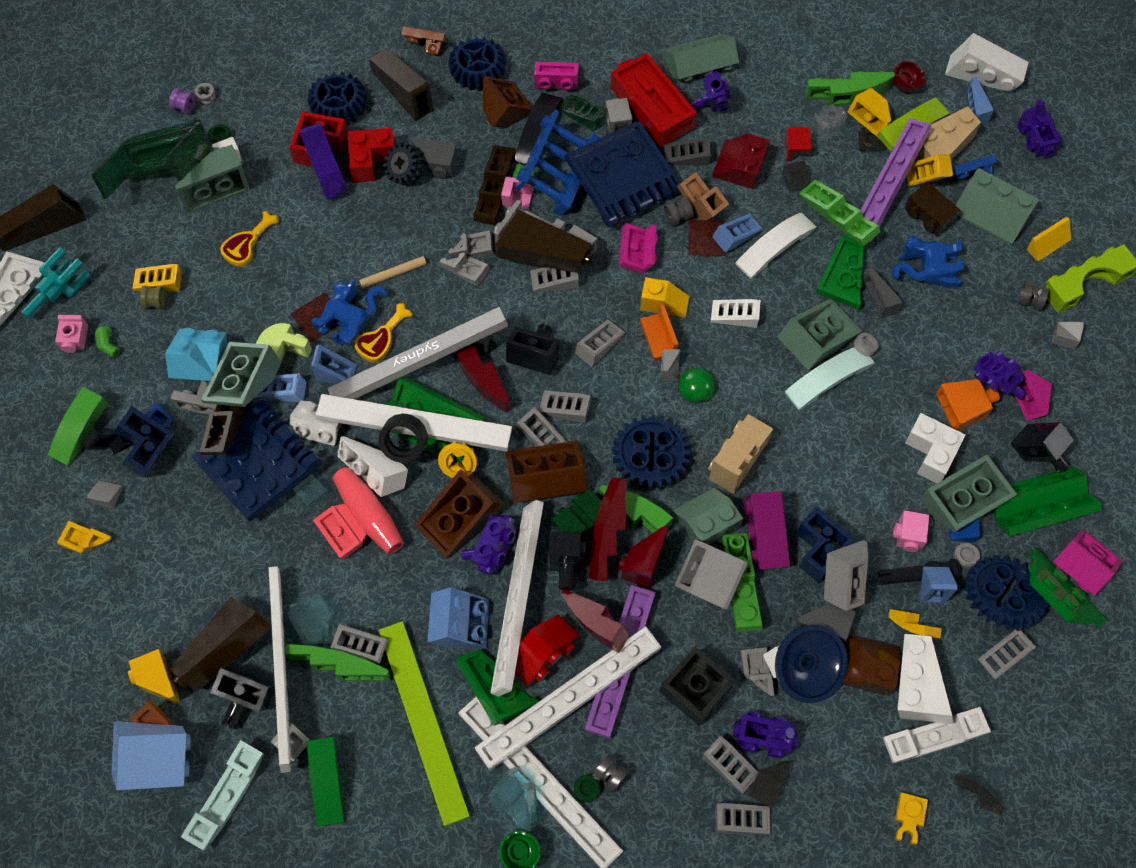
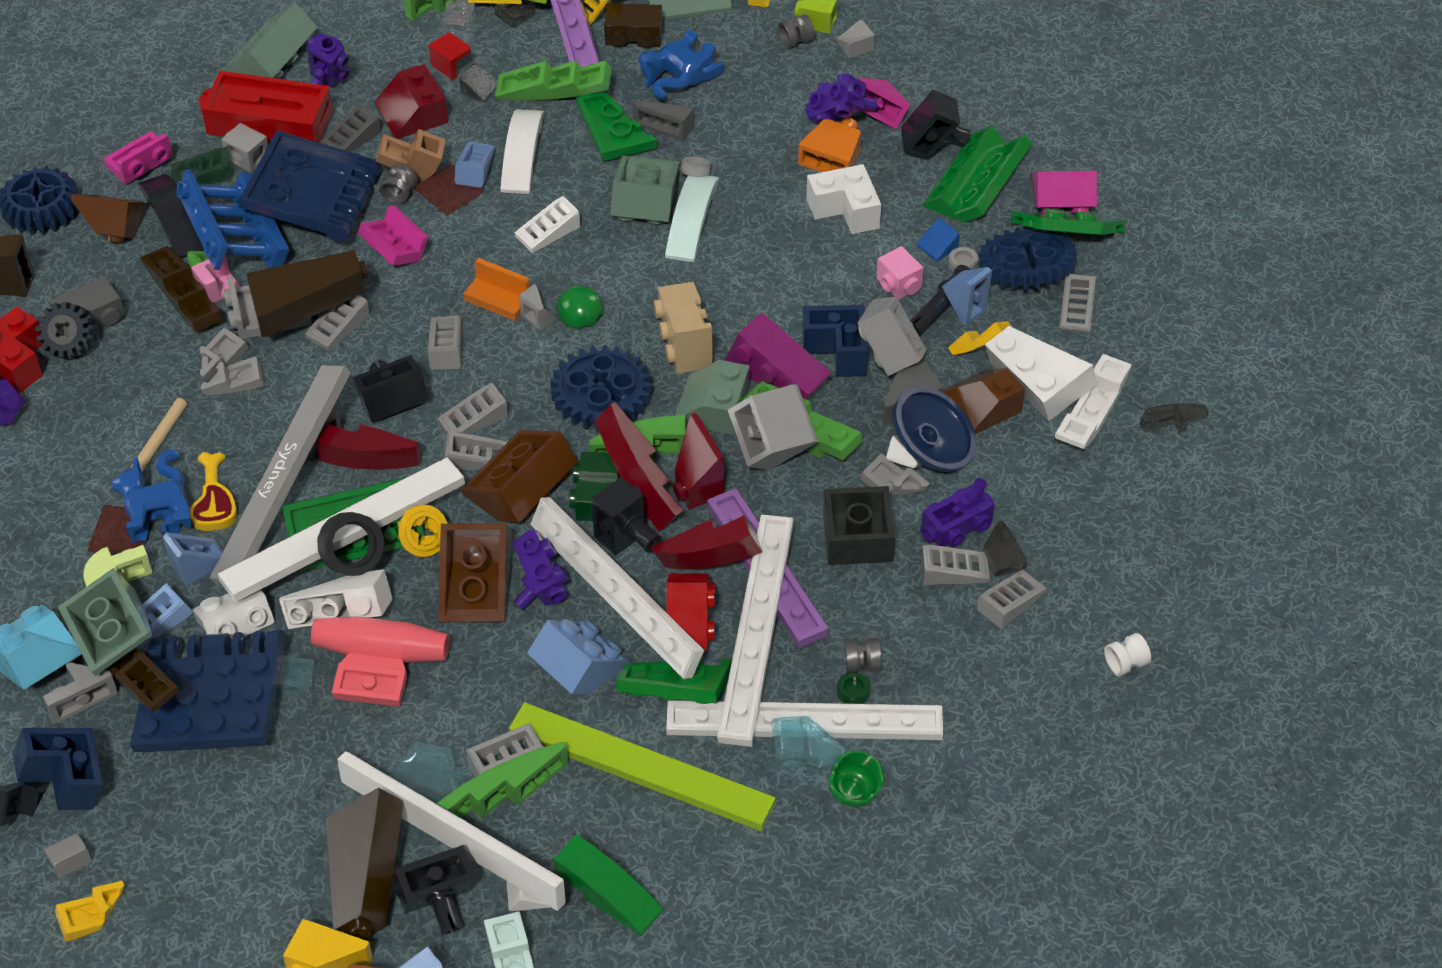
camera: 45 degrees left, 15 degrees down
(661, 292) = (457, 259): yellow slope -> none
(911, 812) = (1140, 478): yellow plate -> none
(967, 494) = (915, 208): sand green slope -> none

